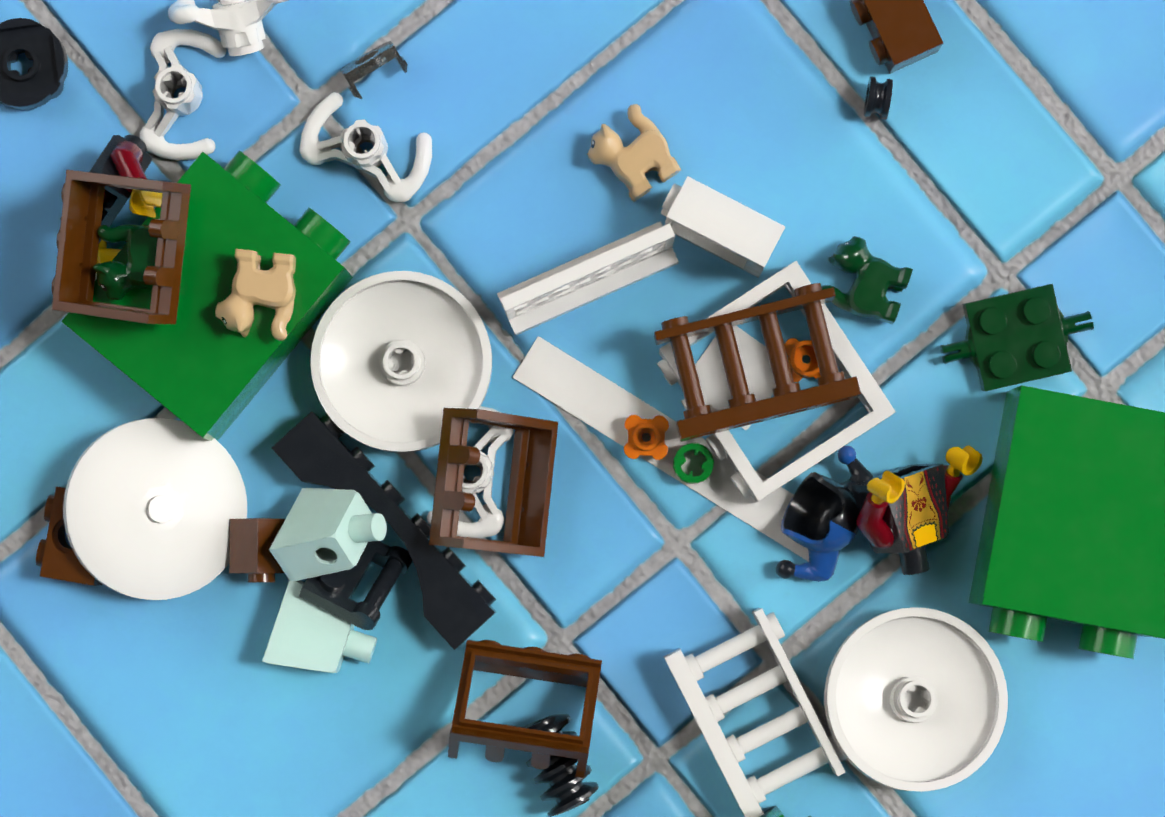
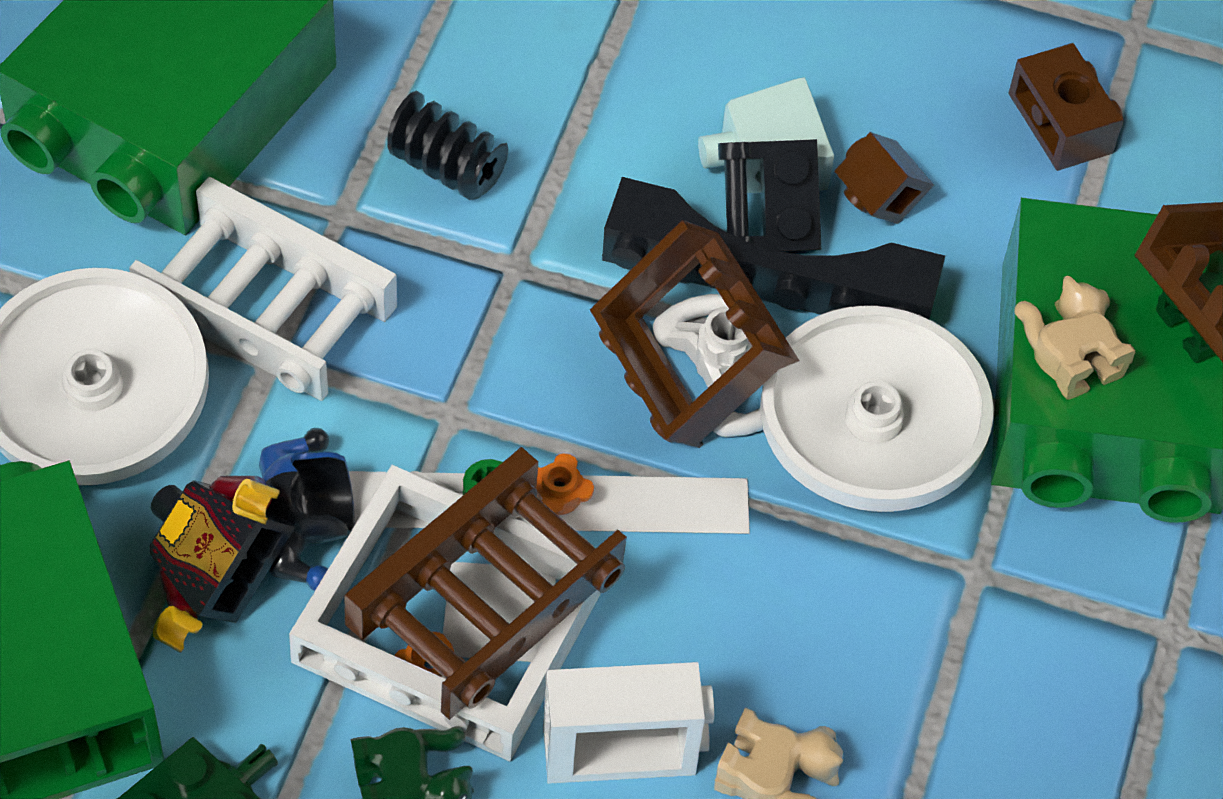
camera: 140 degrees right, 30 degrees down
(153, 509) = (1009, 134): white dish -> none
(325, 533) = (831, 201): light aqua torso -> none
(361, 131) = (1079, 602): white piece -> none
(369, 62) = (1147, 695): clear smoke piece -> none
(532, 664) = (528, 218): reddish brown window -> none
(589, 277) = (752, 584): white fence -> none

